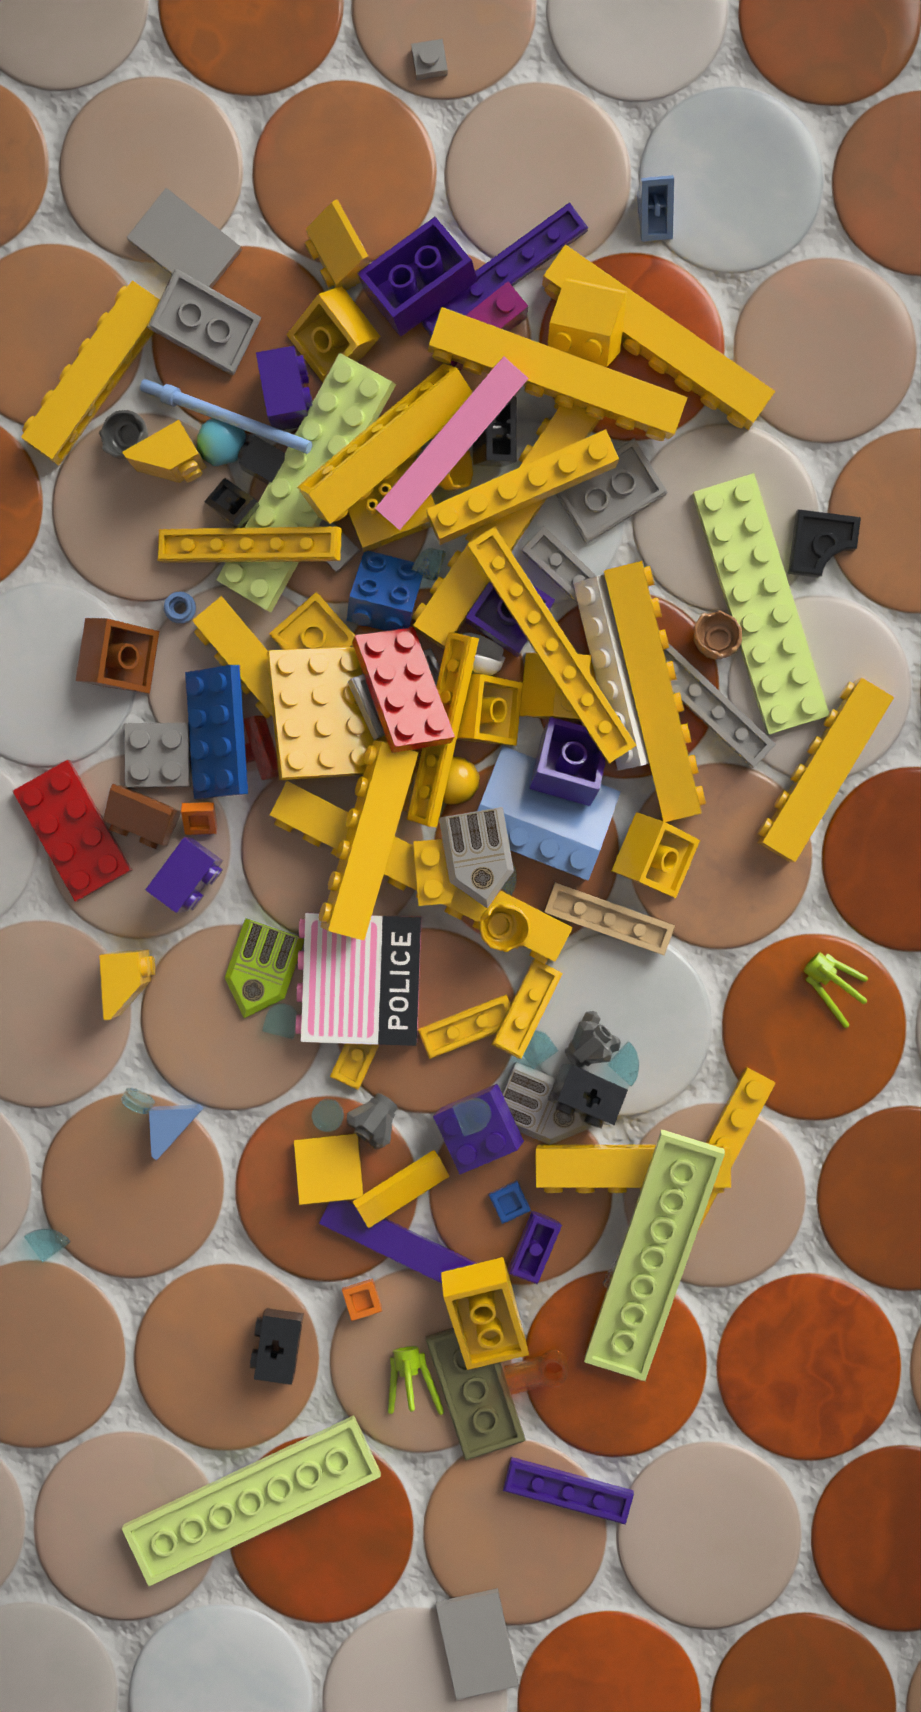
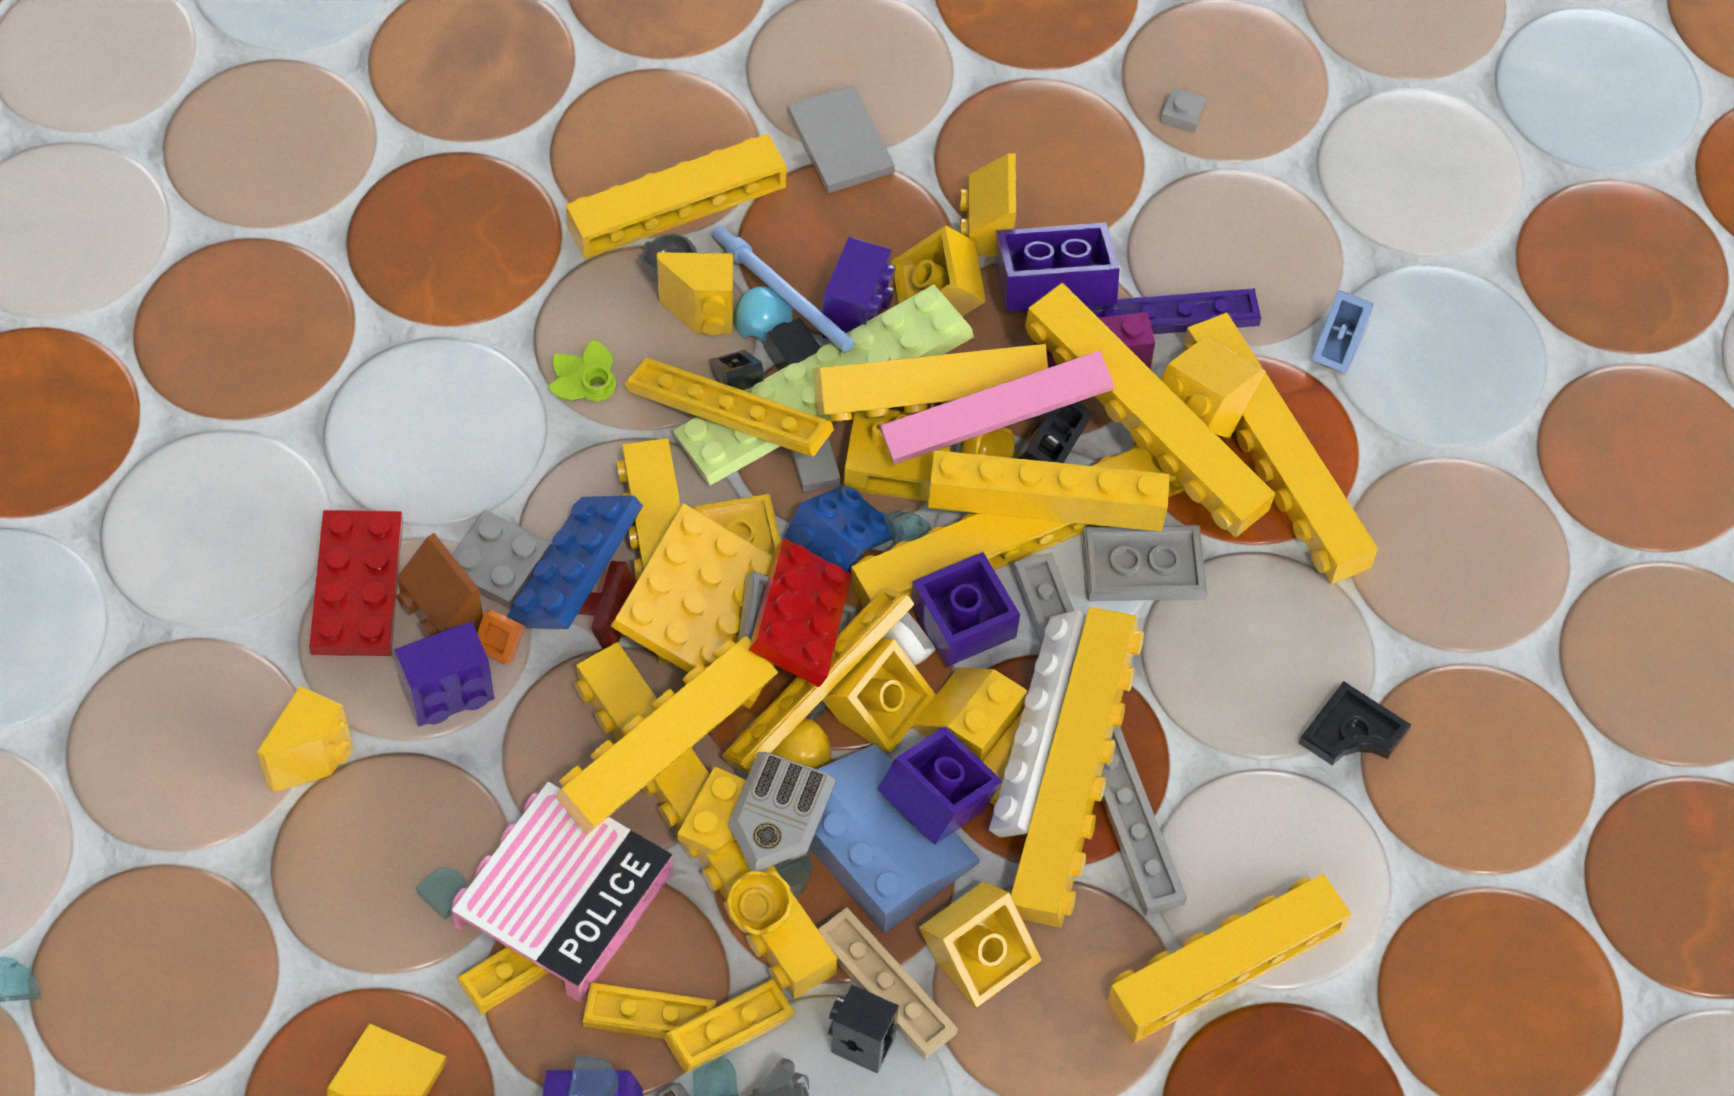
camera: 20 degrees right, 30 degrees down
(117, 655) = (523, 443): dark orange slope -> none
(119, 567) = (579, 374): none -> lime plate
(137, 1100) = (227, 882): clear light blue tile -> none
(168, 1124) = (243, 927): medium blue slope -> none
(171, 602) = (616, 428): medium blue plate -> none
(204, 322) = (814, 203): light grey tile -> none
(262, 966) = (461, 823): lime tile -> none
(328, 1115) = (426, 1020): clear light blue tile -> none
(373, 1120) = (473, 1047): dark grey rock -> none
(551, 645) = (989, 653): yellow plate -> none
(617, 967) = (863, 1027): none -> black brick
(717, 635) = (1181, 753): medium nougat hair -> none
(761, 603) = (1249, 758): yellowish green plate -> none

